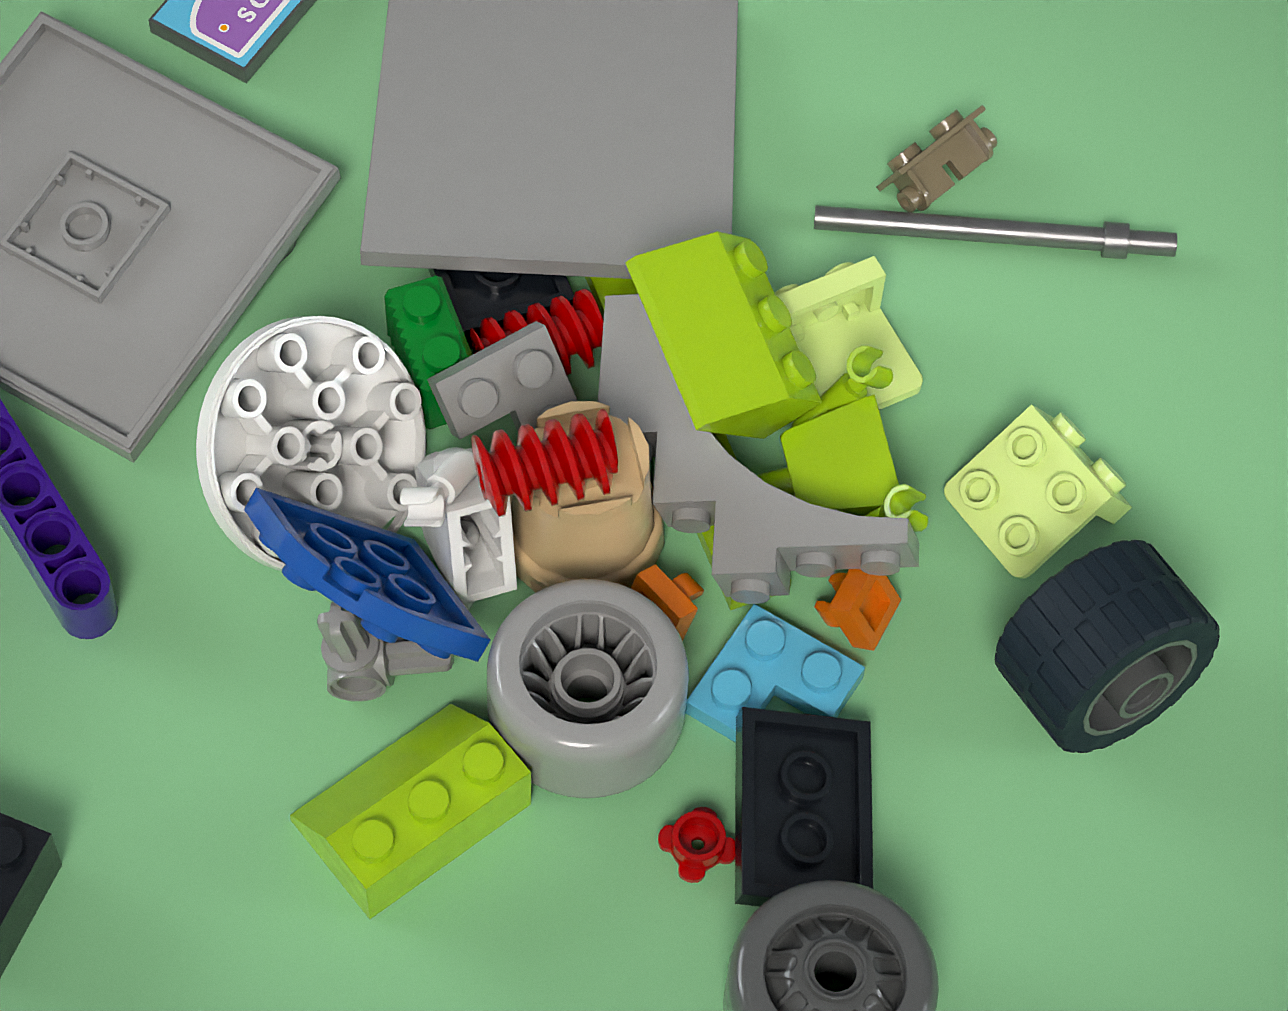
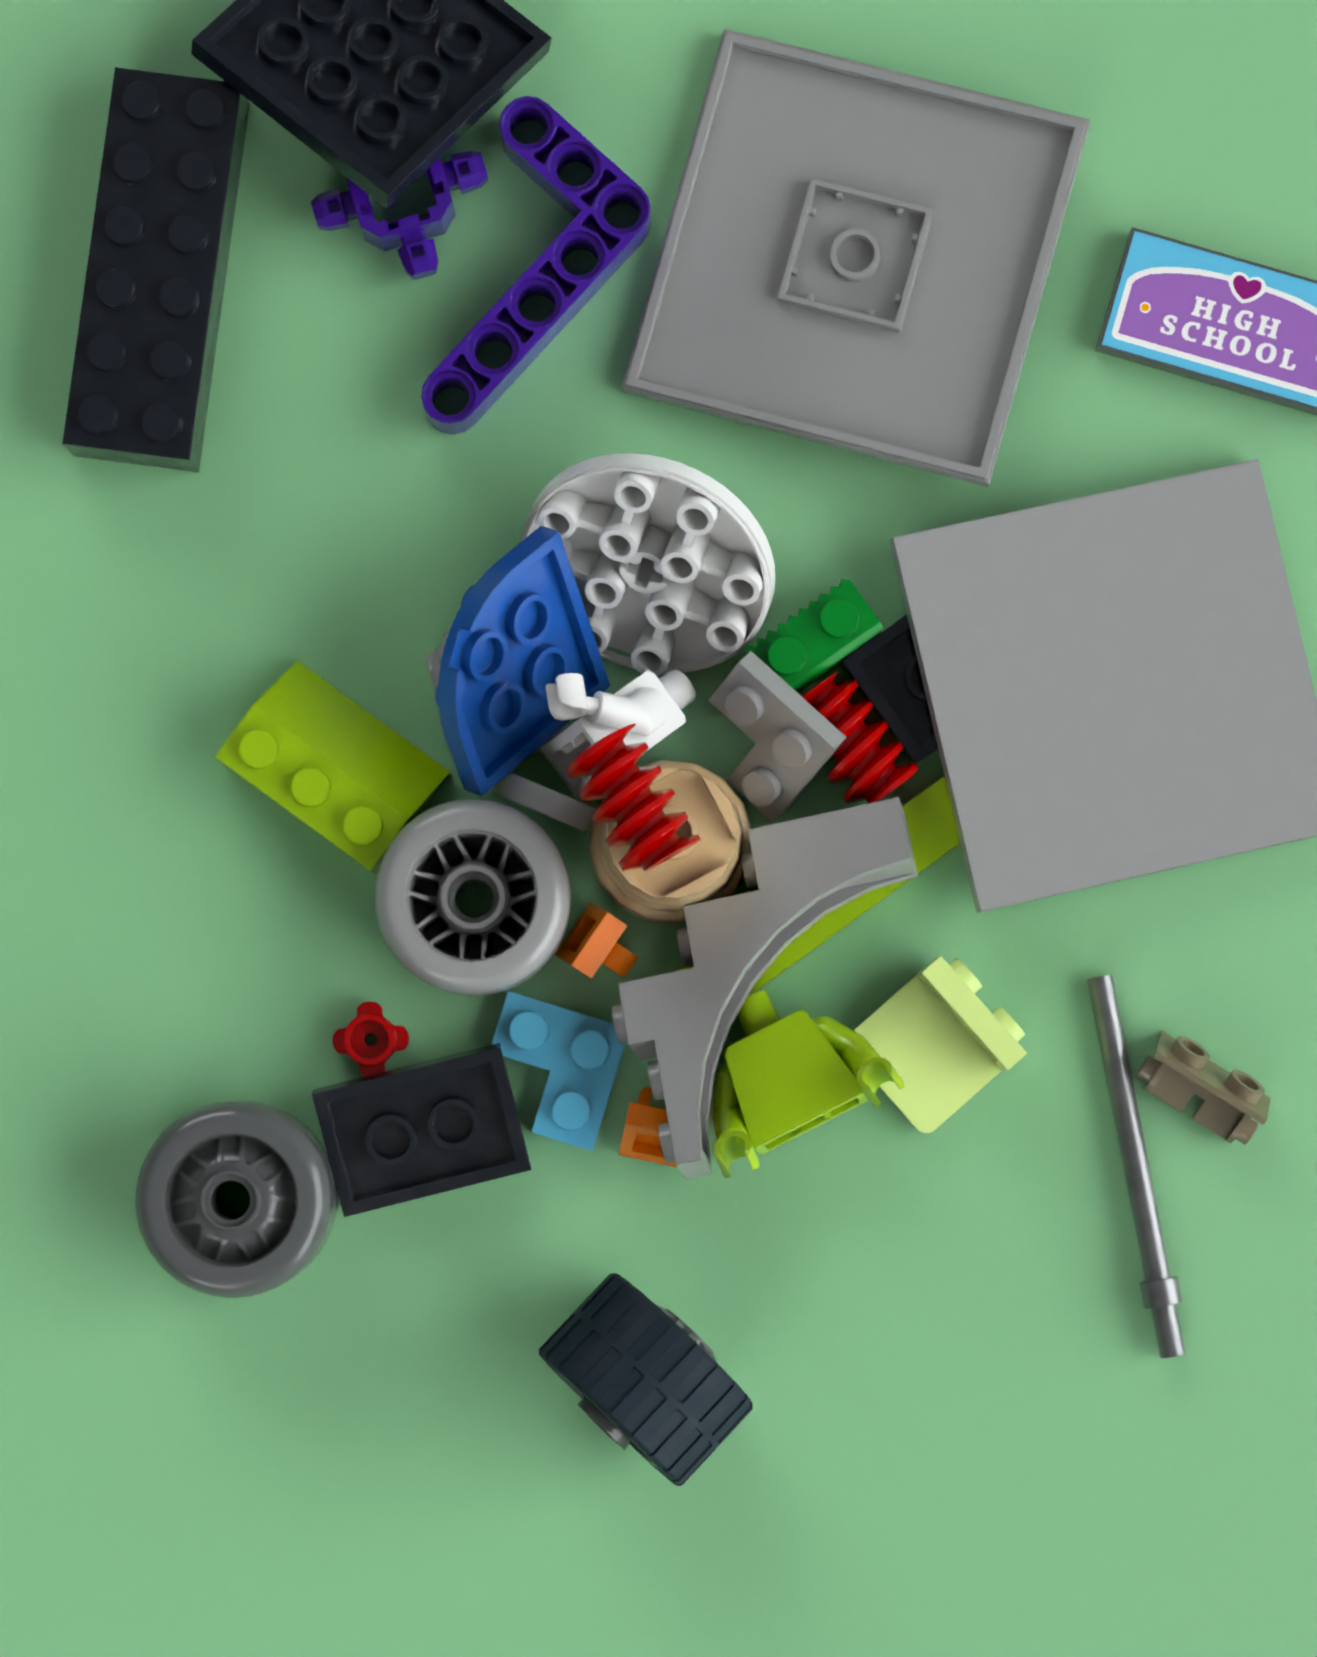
camera: 75 degrees right, 25 degrees up
(509, 592) = (545, 801): none -> light grey piece
(725, 335) = (875, 926): lime slope -> none
(1034, 490) = (832, 1275): yellowish green bracket -> none

